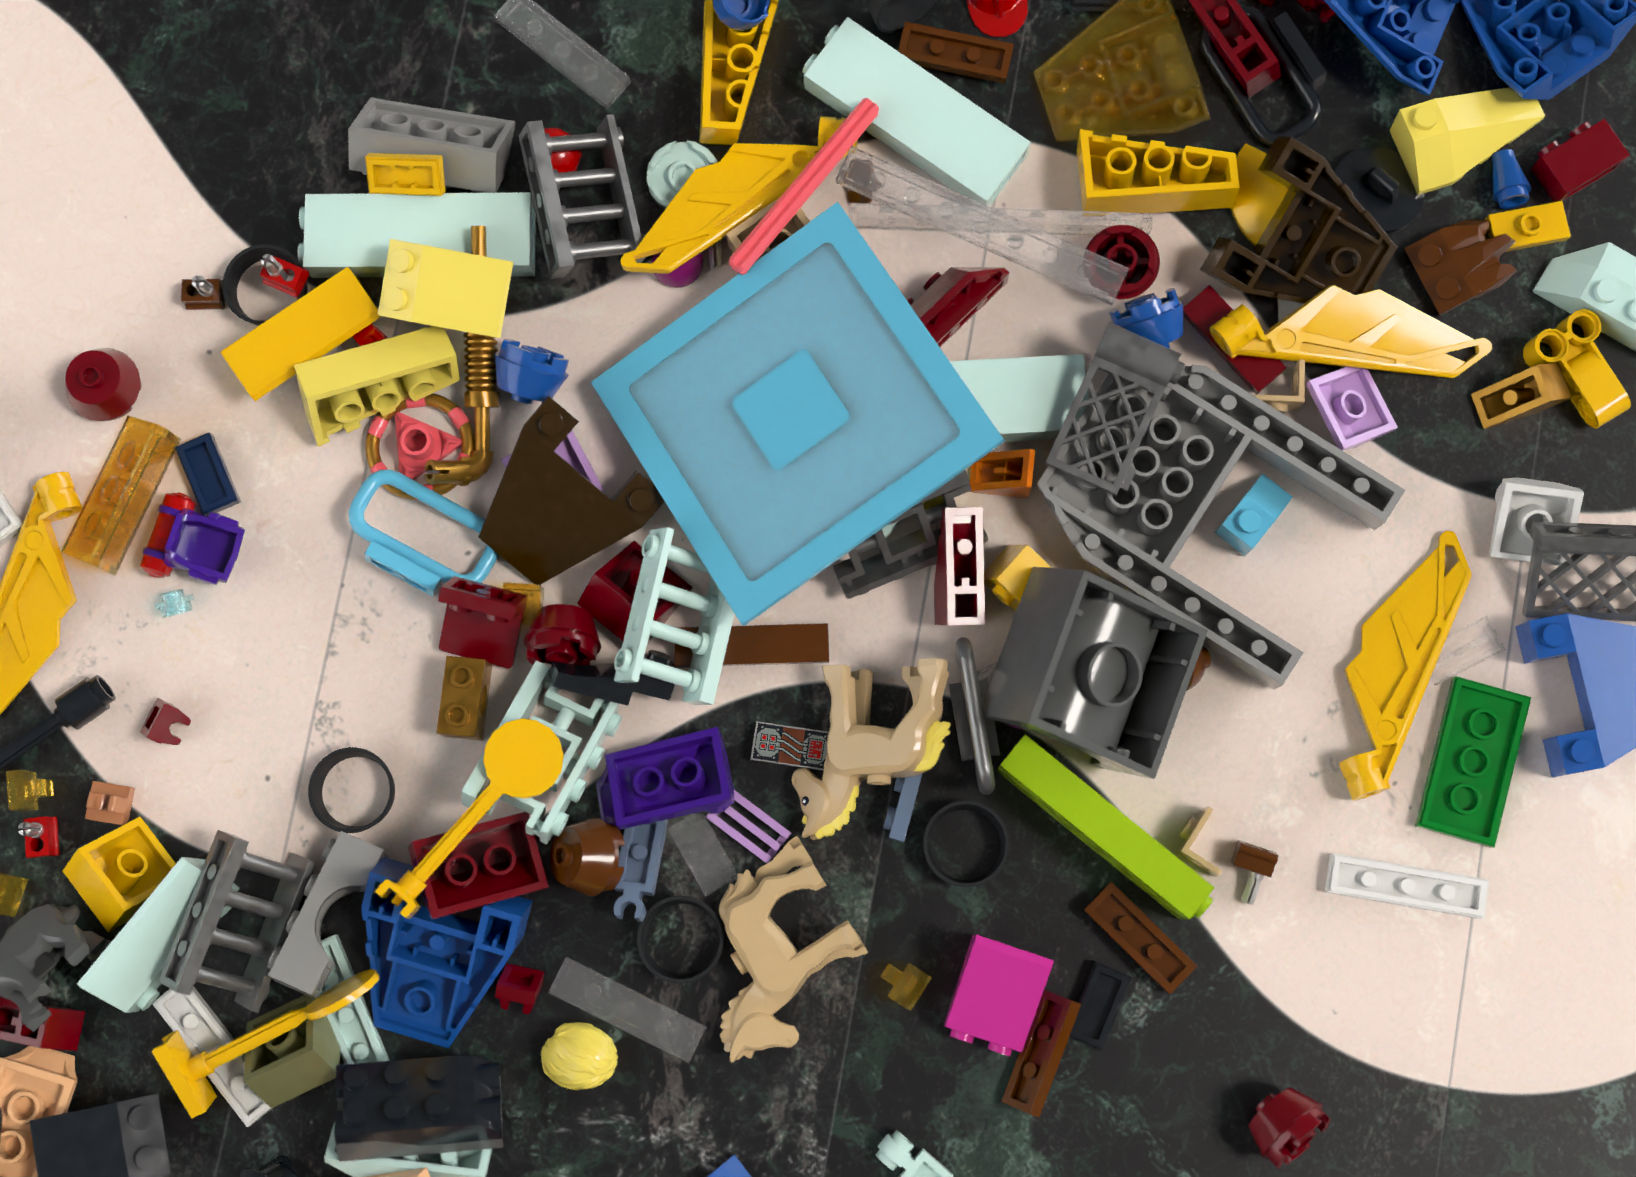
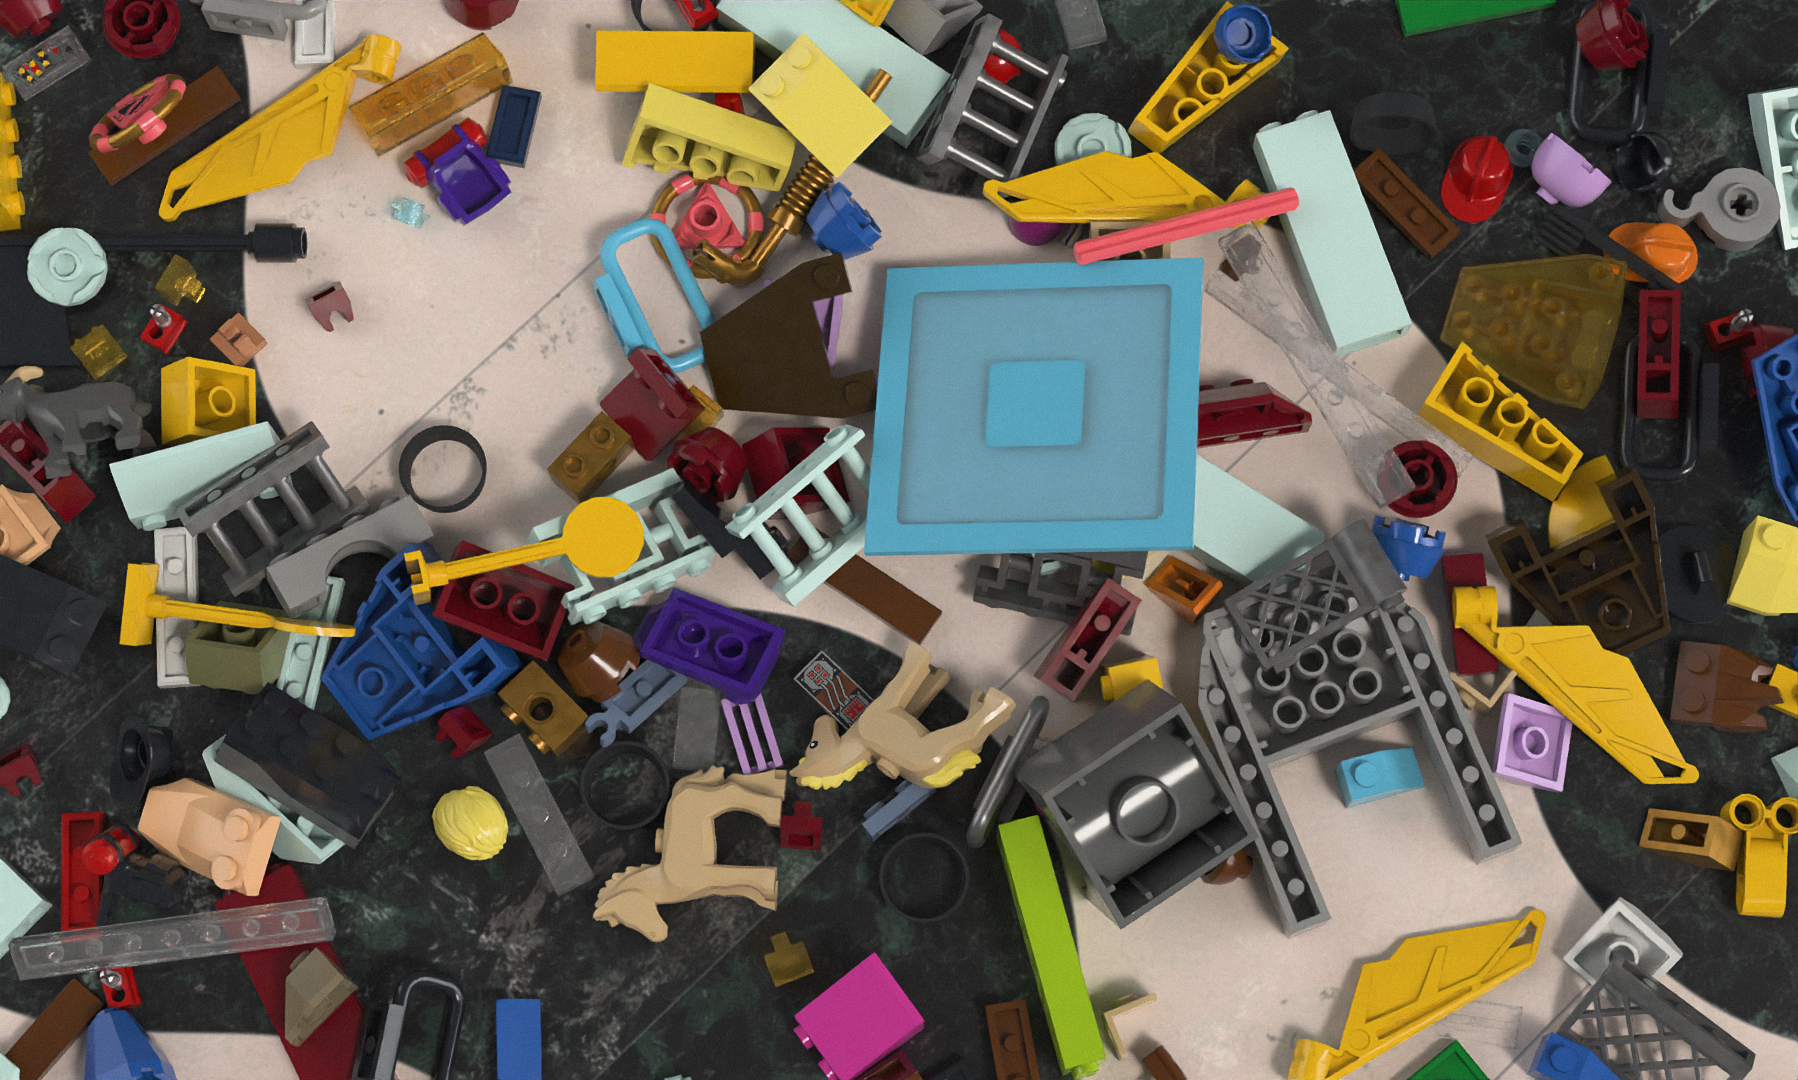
camera: 30 degrees right, 5 degrees down
(547, 923) = (535, 687): none -> pearl gold brick
(842, 874) = (801, 829): none -> dark red tile

